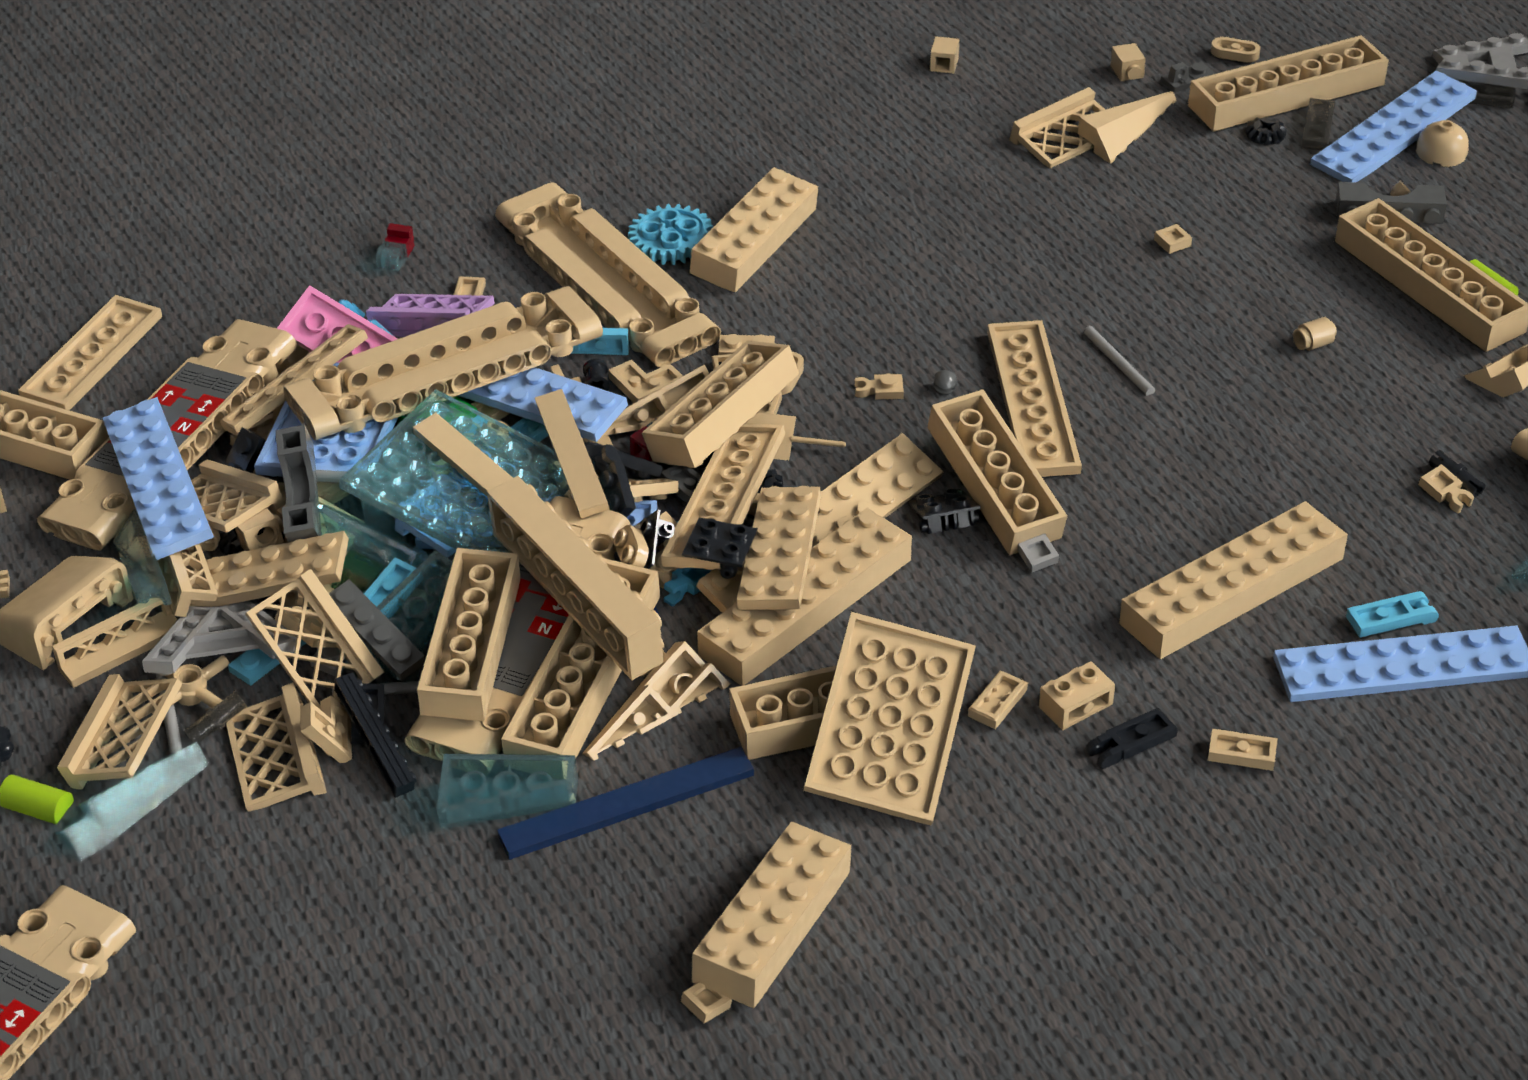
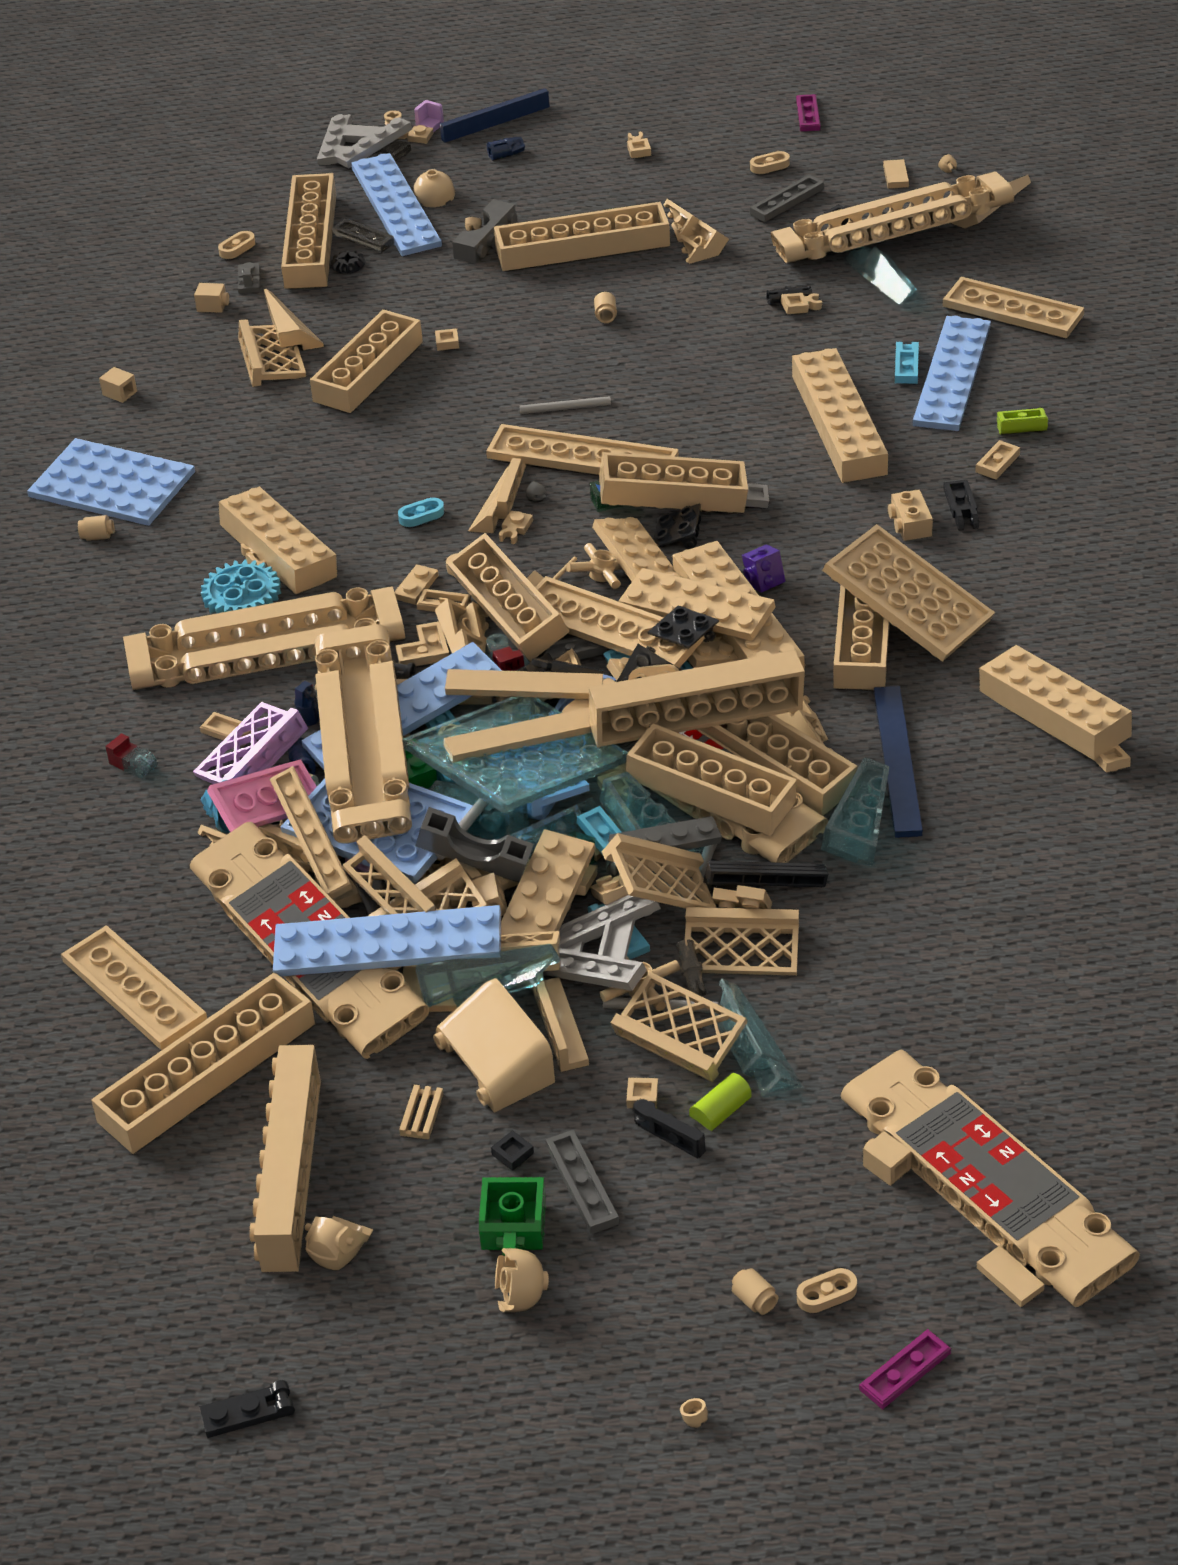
camera: 65 degrees left, 0 degrees up
(32, 734) = (642, 1088): none -> tan plate
(232, 451) = (393, 876): none -> tan fence
(717, 117) = (96, 528): none -> tan brick
(799, 105) = (111, 481): none -> light blue plate
(835, 462) = (600, 566): none -> tan bar
(862, 312) = (421, 512): none -> medium azure plate
(894, 591) = (763, 568): none -> dark purple head
(928, 360) = (501, 499): none -> tan wedge
(1085, 192) = (366, 361): none -> tan brick
(1338, 752) = (1022, 421): none -> lime brick

